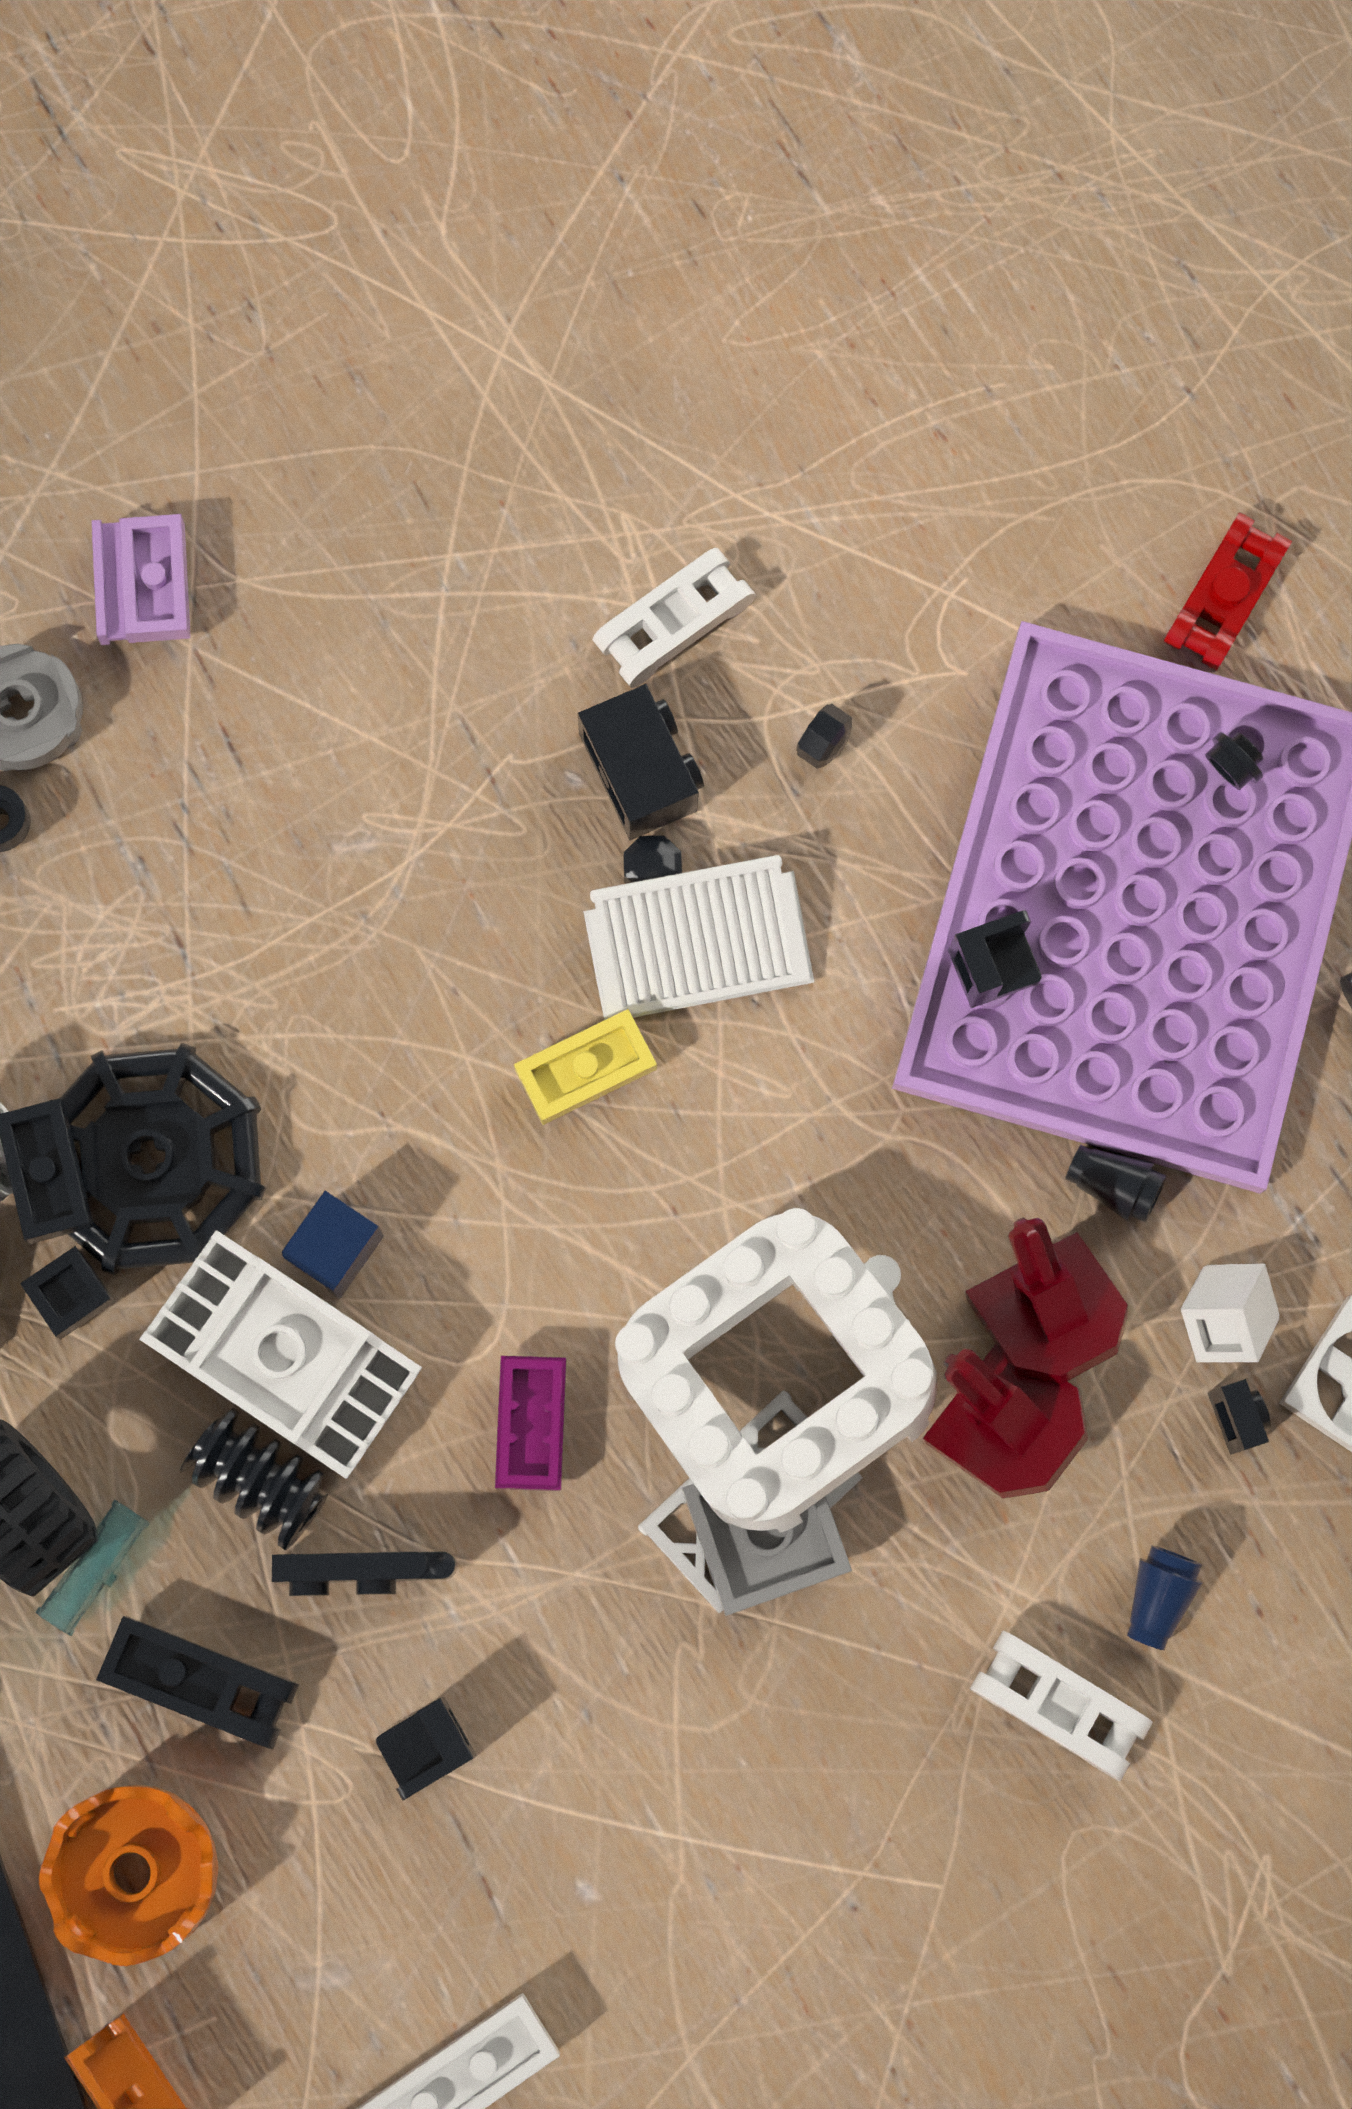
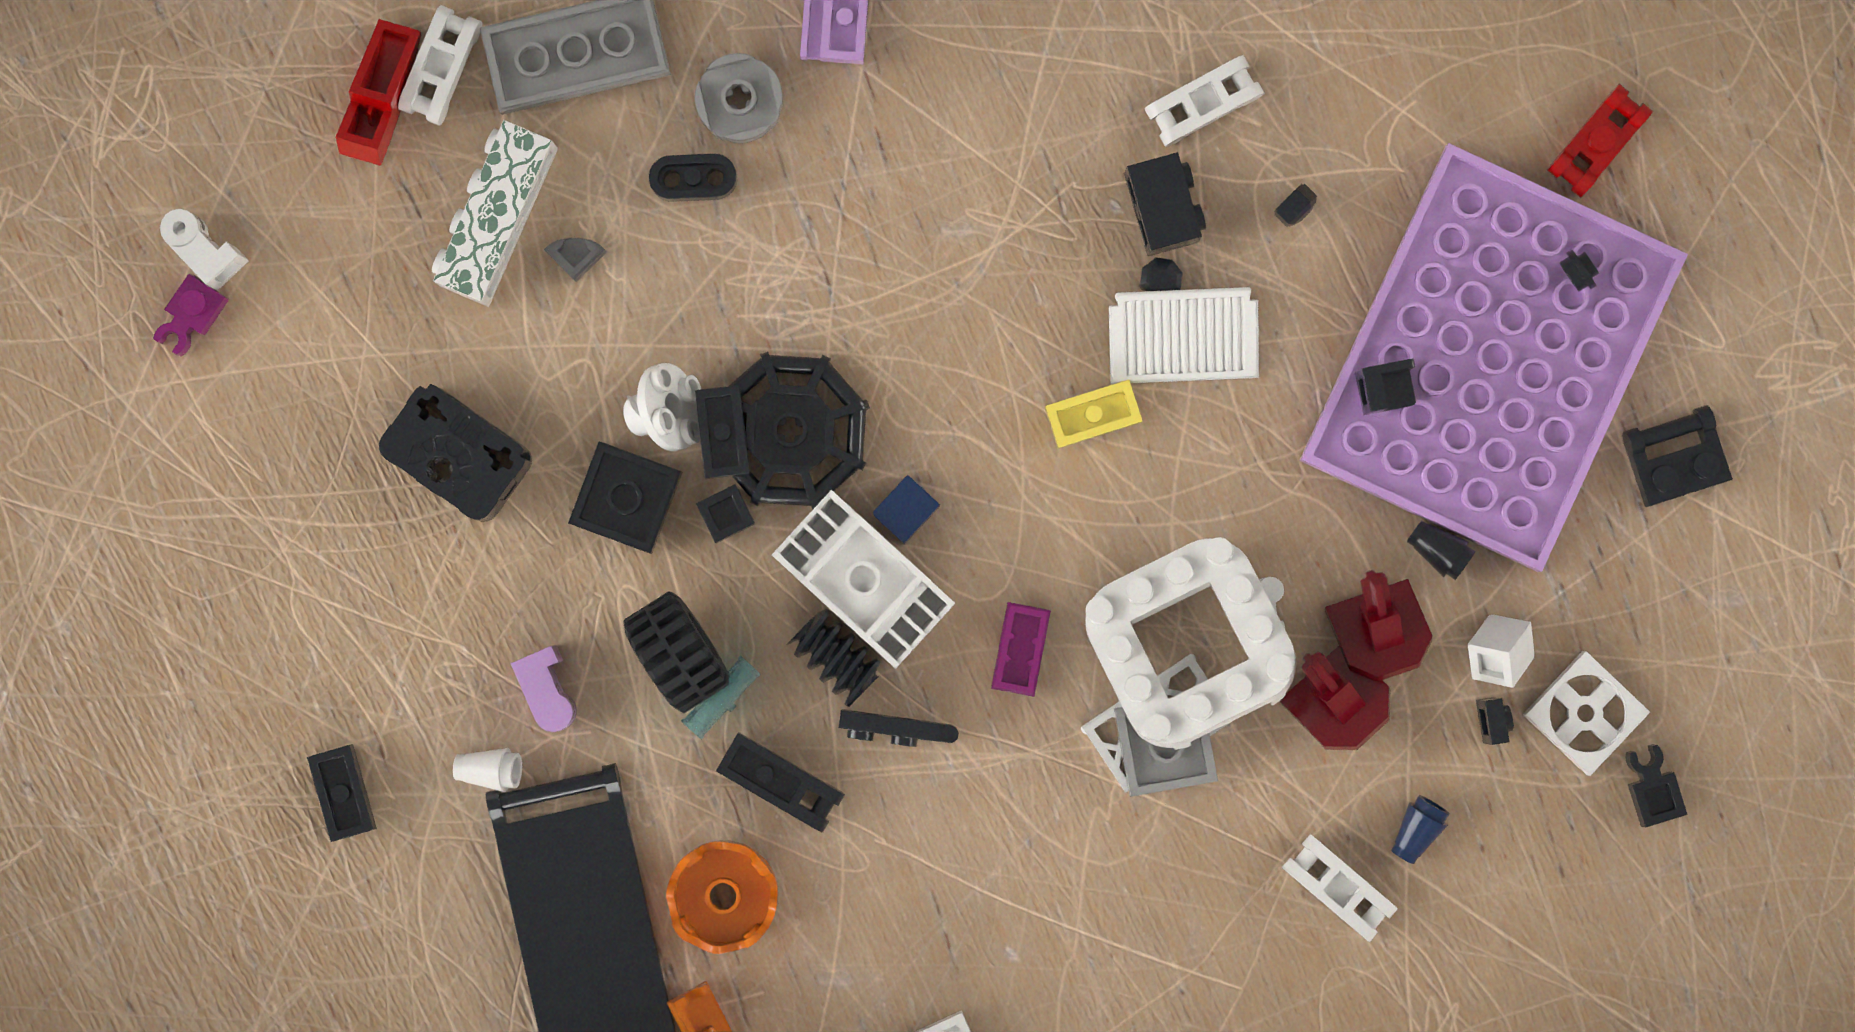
camera: 15 degrees right, 10 degrees up
(425, 1747) = (921, 848): black panel -> none

